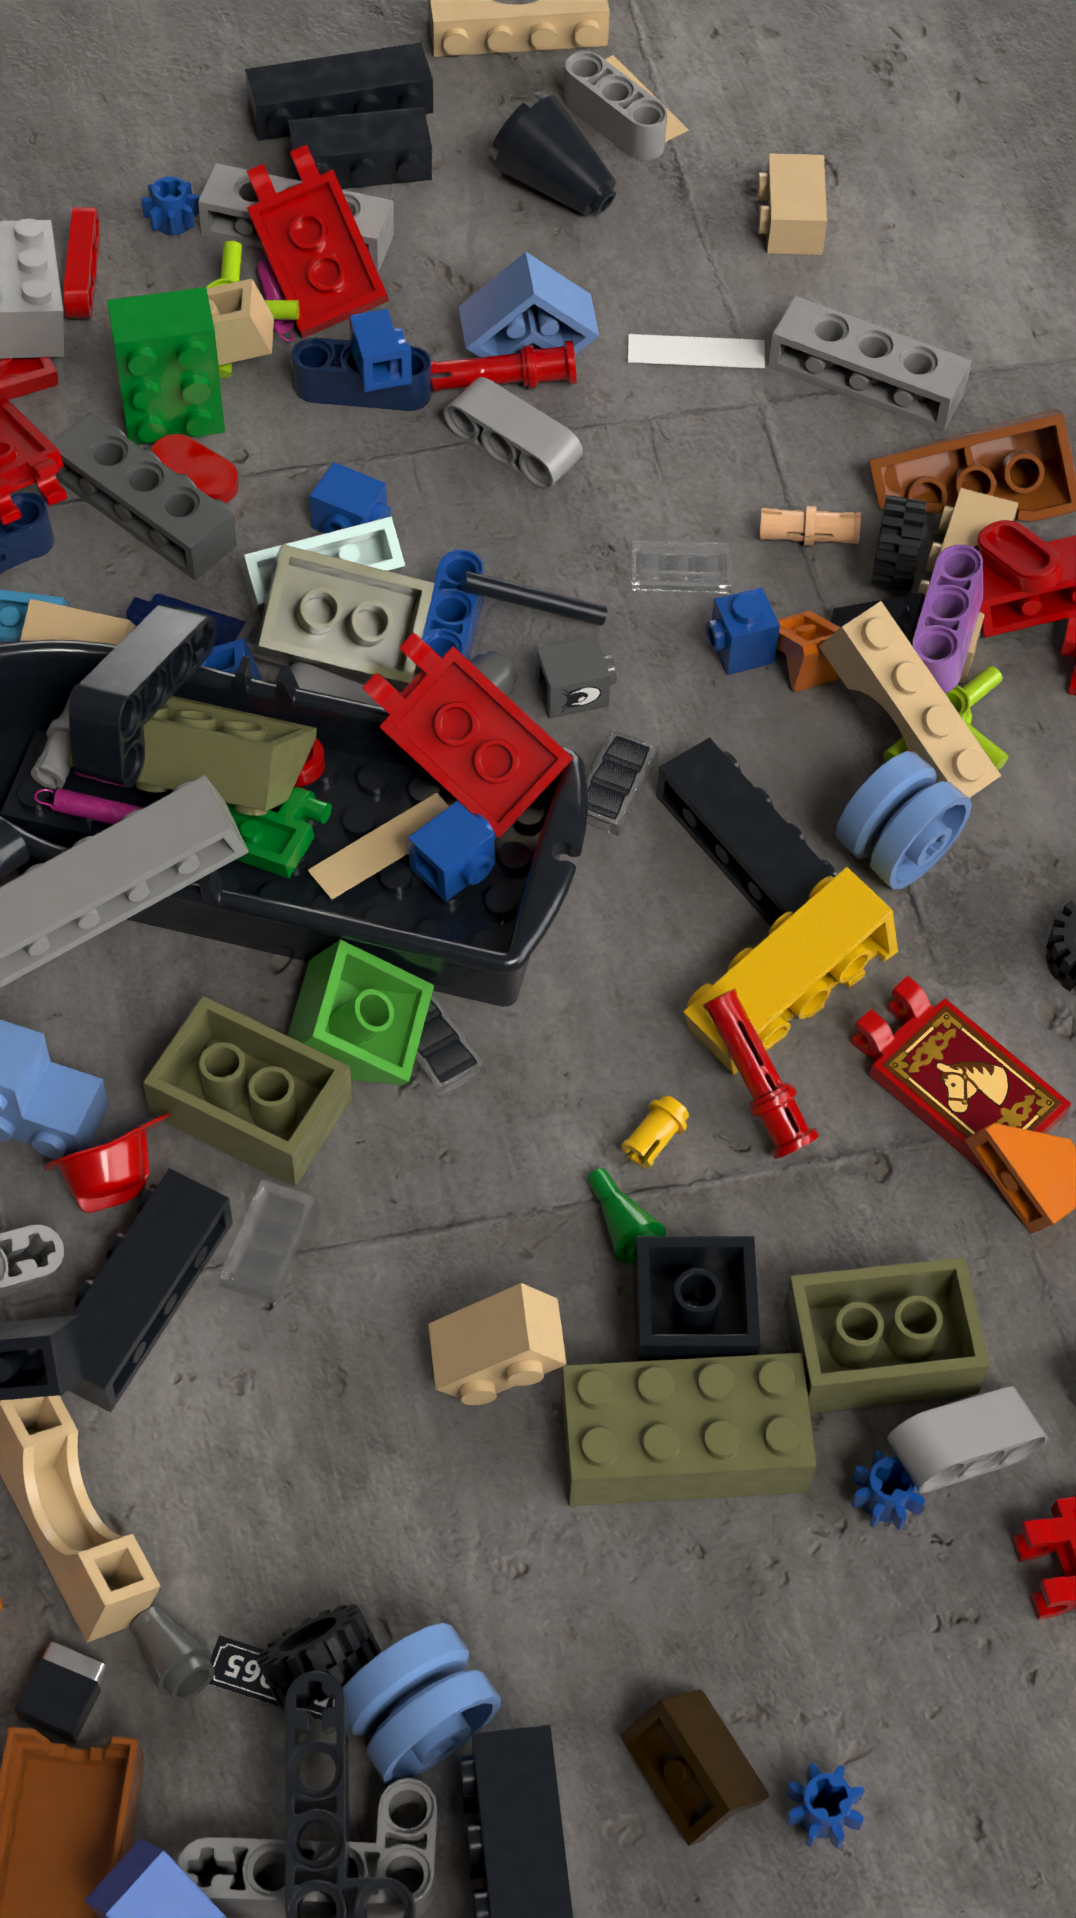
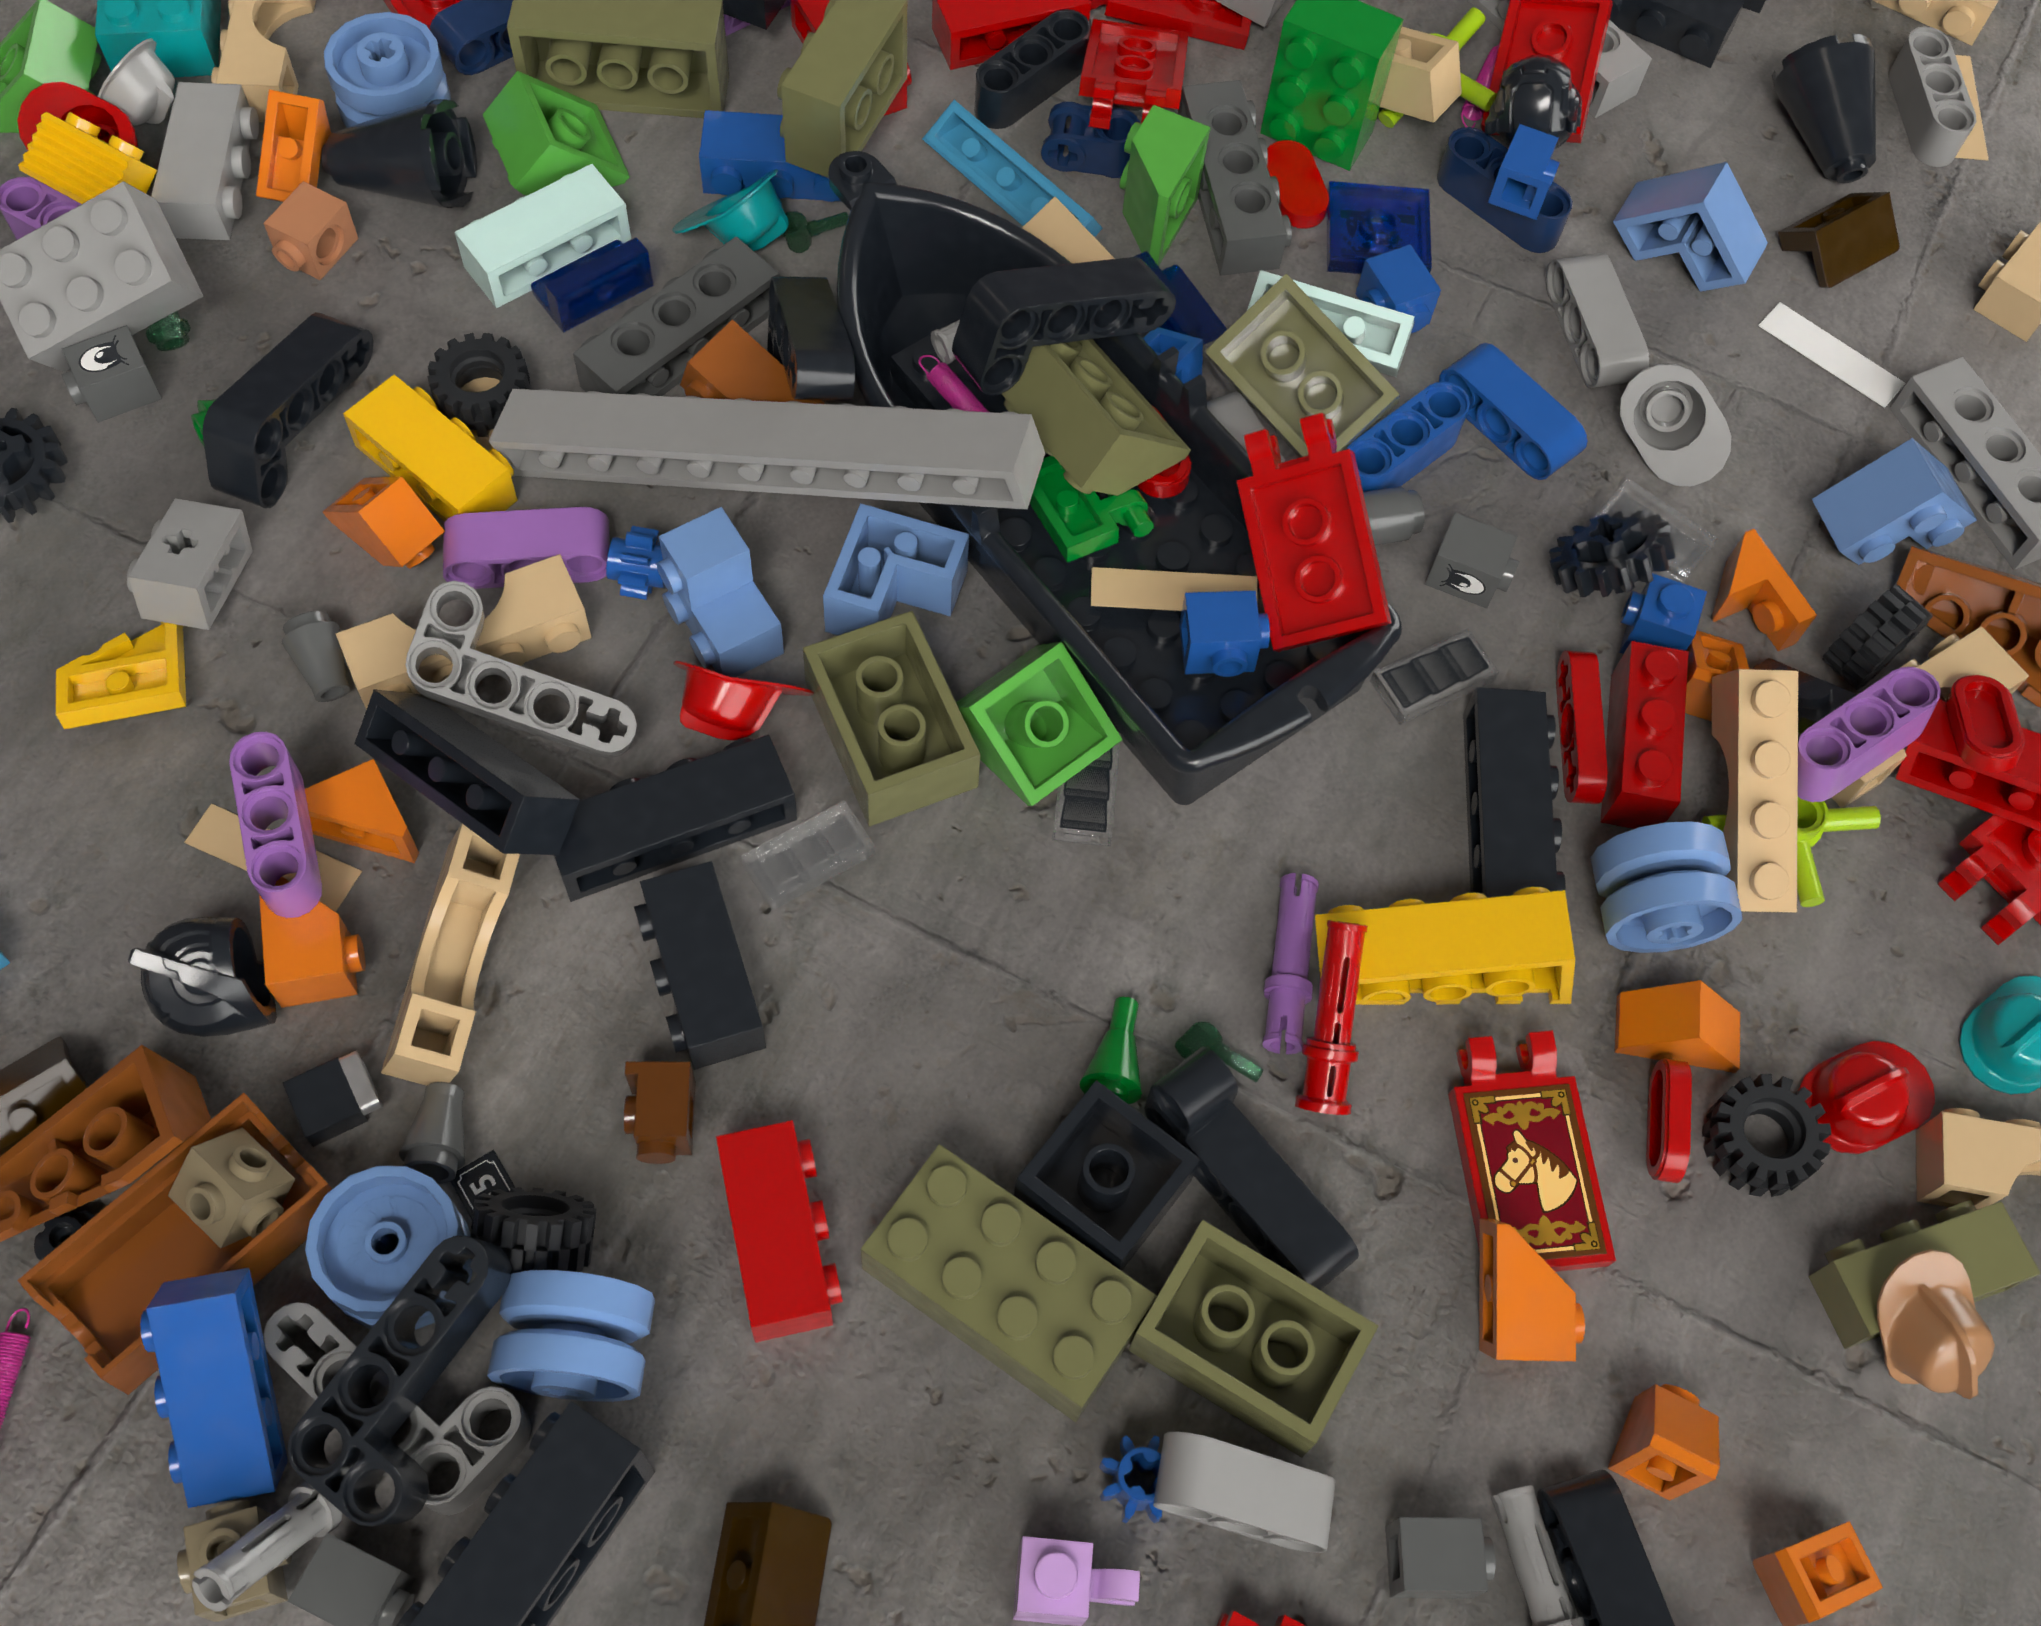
camera: 35 degrees right, 5 degrees up
(61, 1804) = (231, 1187): none -> dark tan brick
(95, 532) = (1162, 177): none -> bright green slope
(147, 971) = (893, 561): none -> medium blue brick
(222, 1716) = (357, 1233): none -> medium blue wheel
(263, 1378) = (699, 966): none -> black brick
(284, 464) = (1373, 221): none -> clear blue tile
(328, 1503) = (661, 1109): none -> reddish brown brick
(339, 286) = (1537, 95): none -> black helmet
(490, 1522) = (778, 1230): none -> red brick
(497, 1344) = (903, 1083): tan brick -> none
(512, 541) = (1516, 412): none -> blue beam
(528, 366) = (1658, 272): red pin -> none
(533, 598) = (1491, 469): black bar -> none
(636, 251) = (1845, 236): none -> dark brown panel
(637, 477) = (1675, 424): none -> light grey piece
(664, 1121) = (1209, 1002): yellow pin -> none
(671, 603) = (1612, 553): none -> black gear
(675, 1160) = (1208, 1036): none -> clear green hand
(701, 1078) = (1288, 986): none -> medium lavender pin
(750, 745) = (1581, 727): none -> red beam
(787, 1229) = (1247, 1173): none -> black beam
(788, 557) = (1760, 584): none -> orange slope
(799, 723) = (1645, 736): none -> red brick
(810, 526) = (1812, 573): light nougat pin -> none
(832, 436) = (1894, 499): none -> medium blue brick
(897, 1596) = (1059, 1582): none -> lavender brick
(982, 913) = (1679, 1024): none -> orange slope
(1029, 982) = (1669, 1120): none -> red tile

